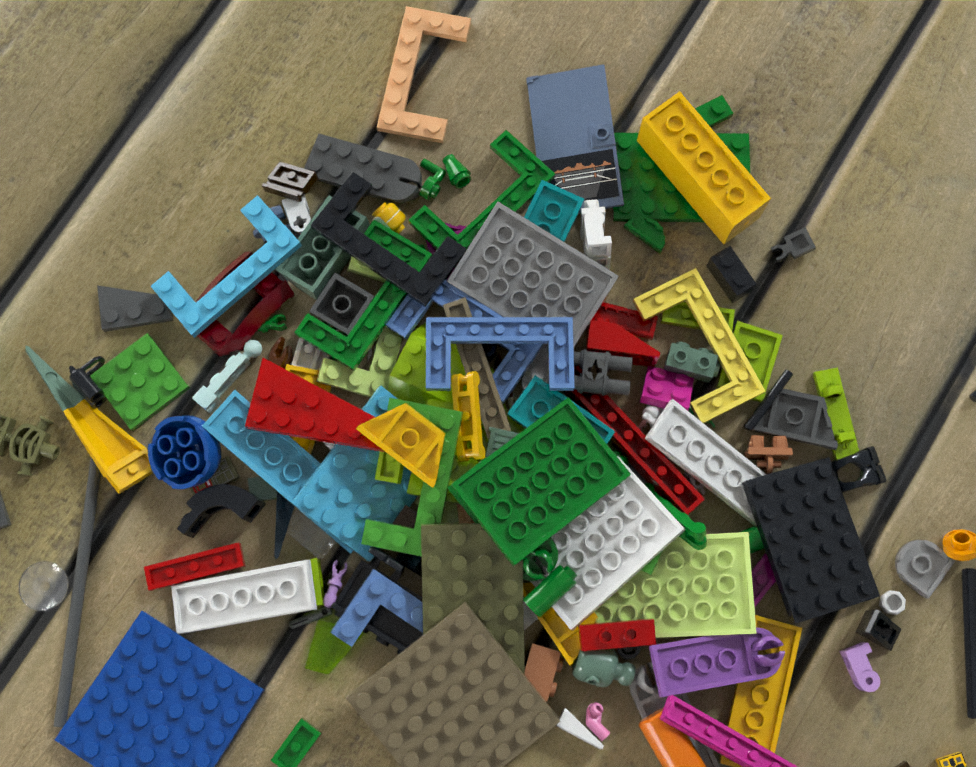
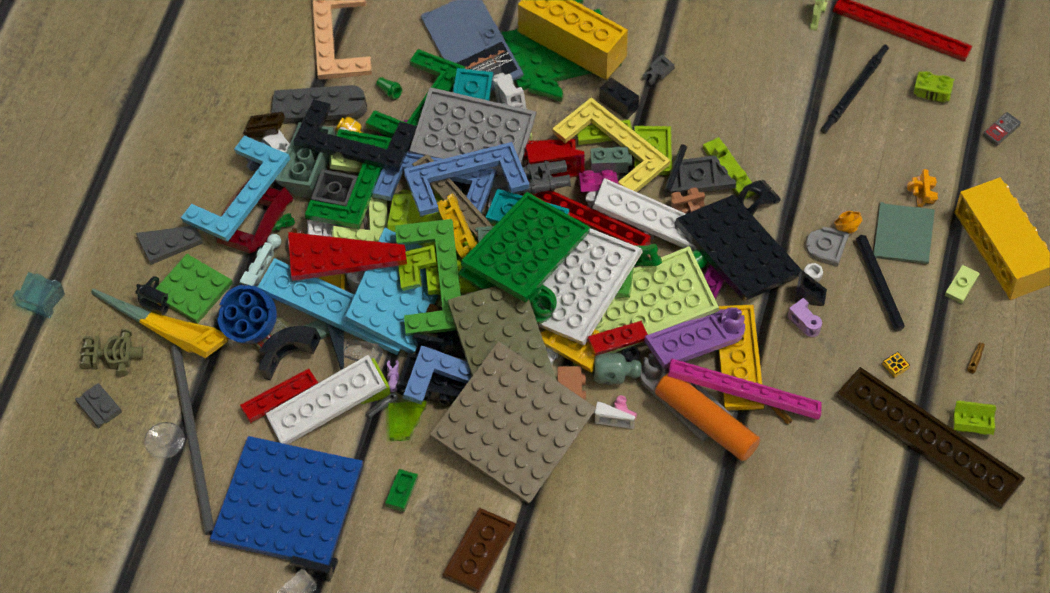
camera: 20 degrees left, 20 degrees down
(408, 439) = (419, 244): yellow wing -> none
(431, 186) = (373, 100): green plate -> none
(551, 590) = (558, 319): green brick -> none

